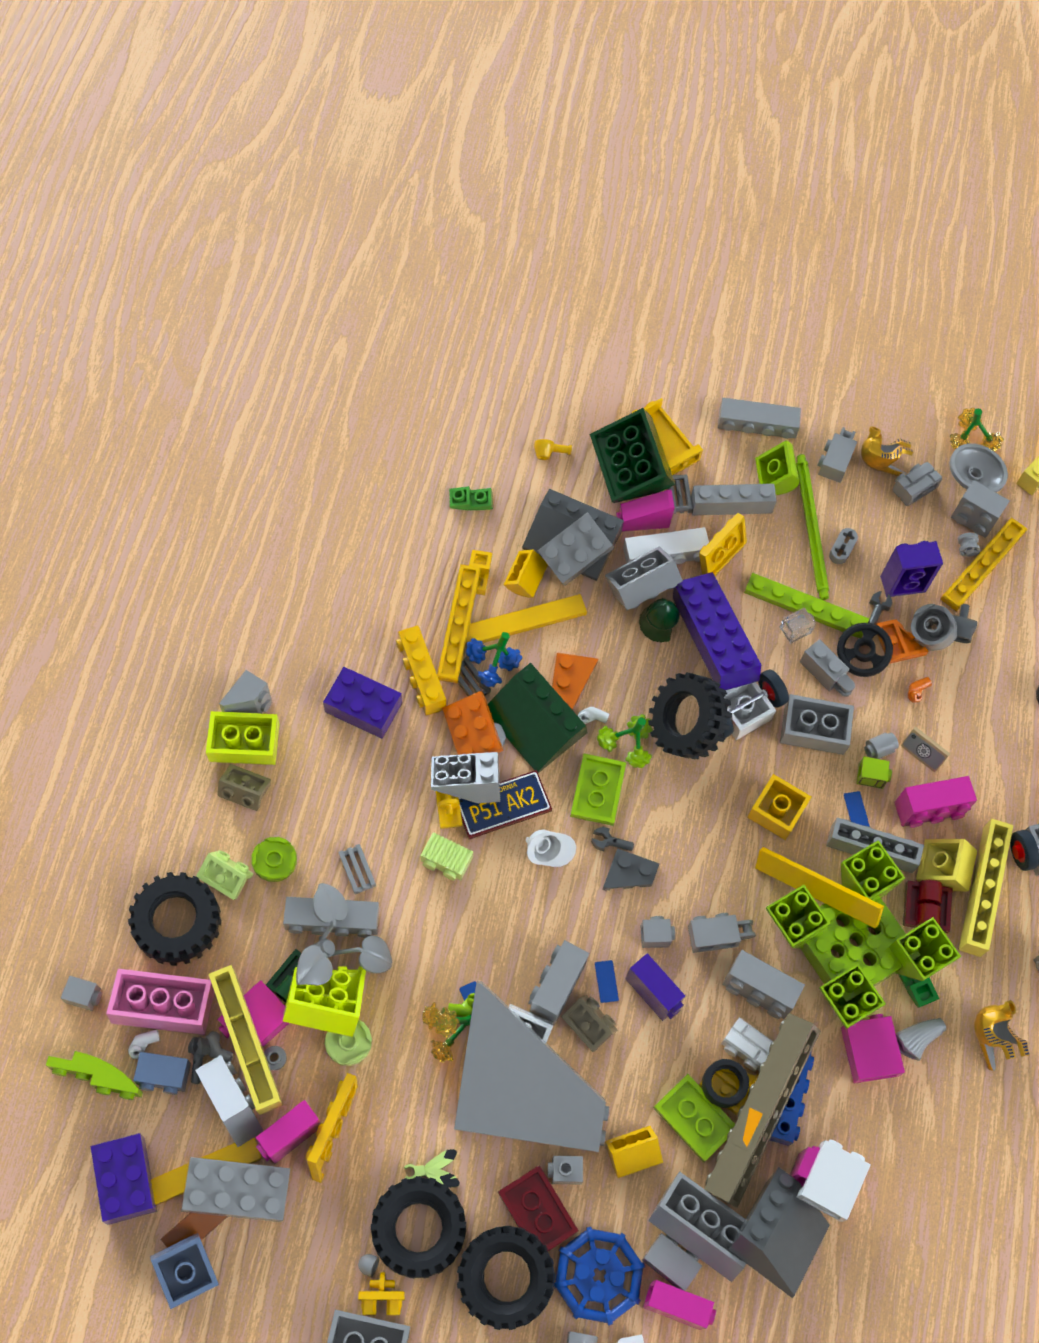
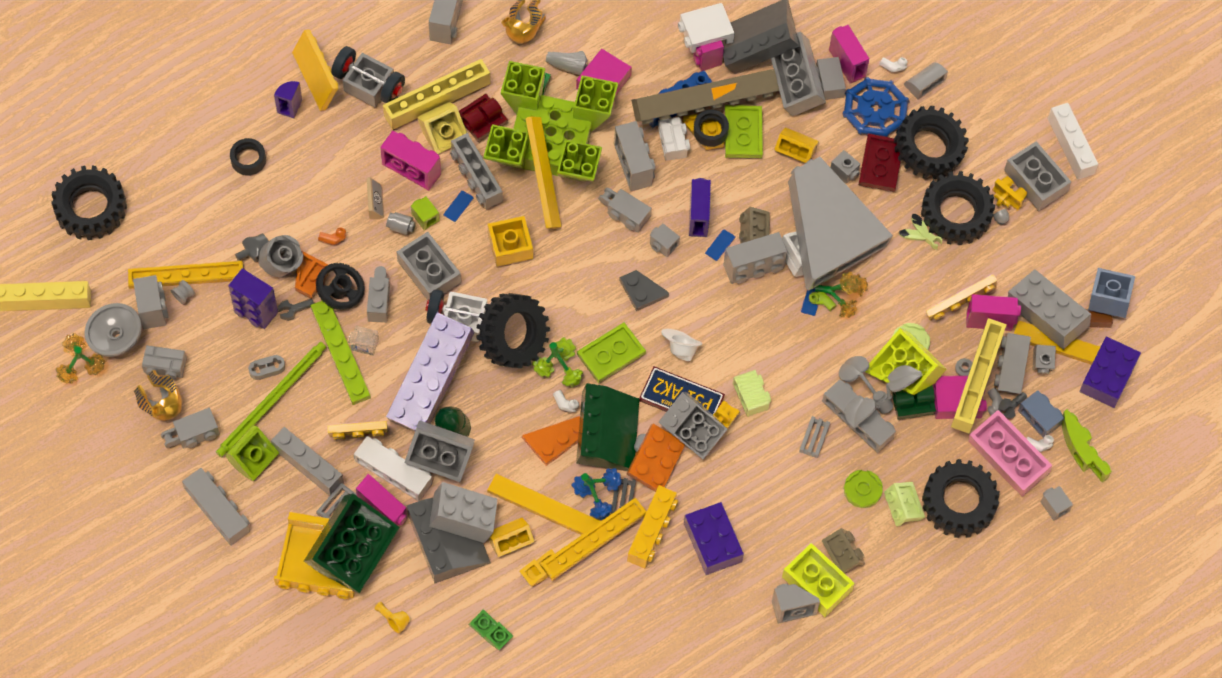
camera: 135 degrees left, 0 degrees up
(202, 1133) = (1044, 358): none -> light grey brick
(610, 841) = (635, 318): dark grey bar -> none

